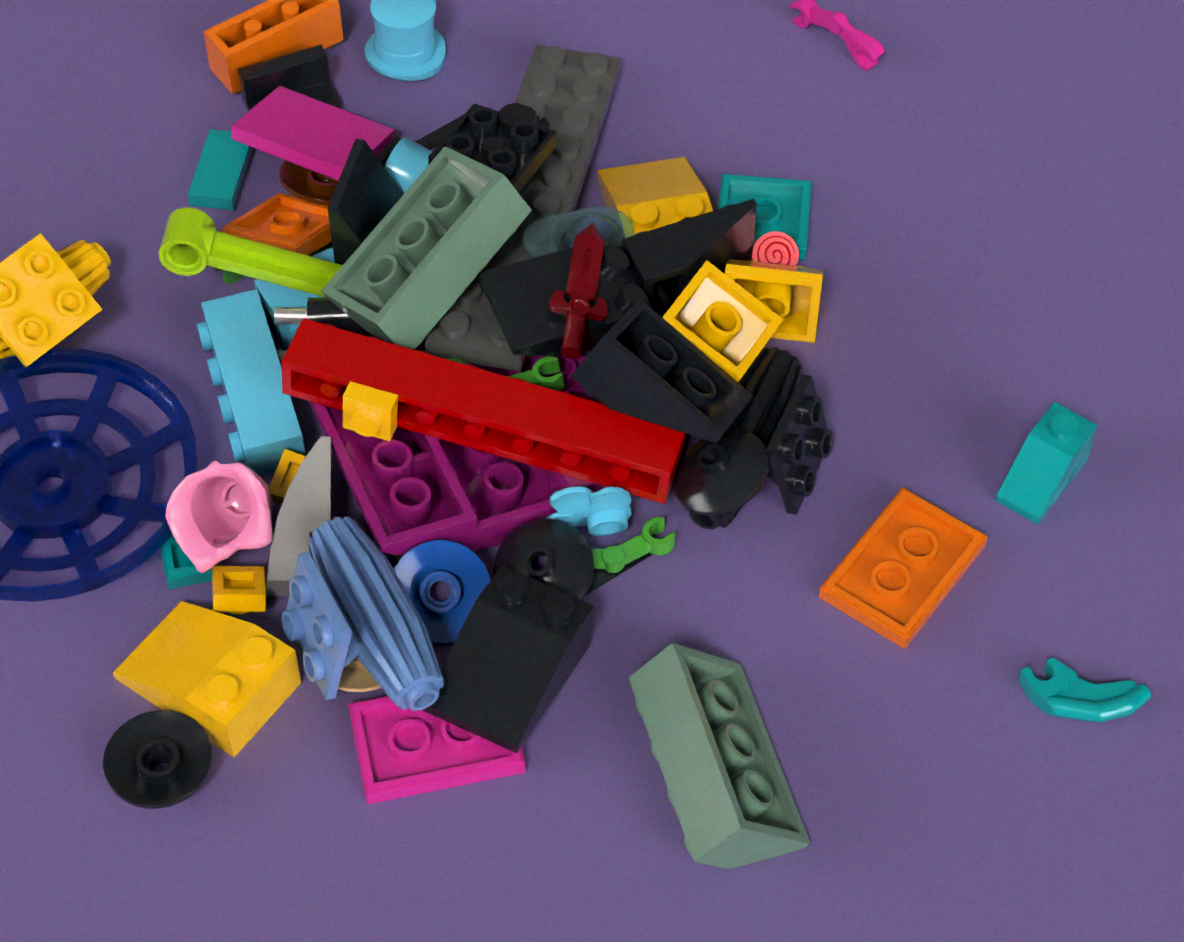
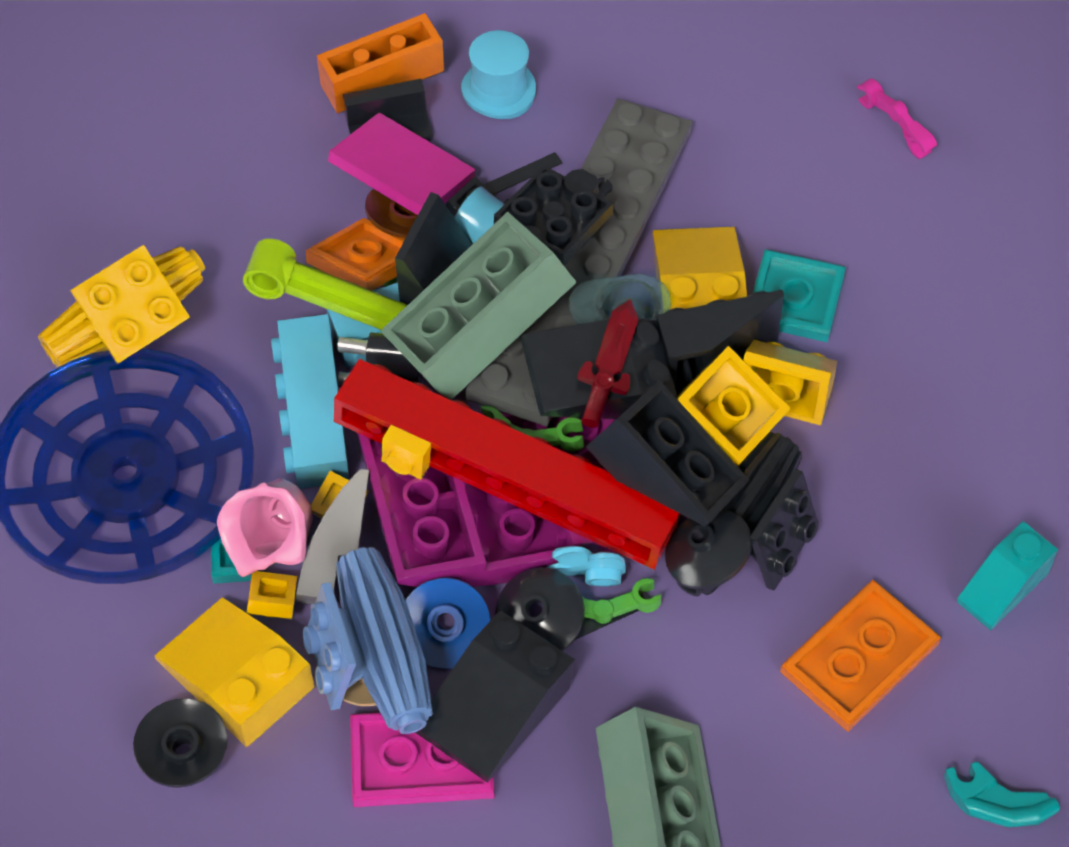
camera: 10 degrees right, 5 degrees up
(219, 171) = (314, 189): teal tile -> none
(776, 249) = (799, 334): coral tile -> none

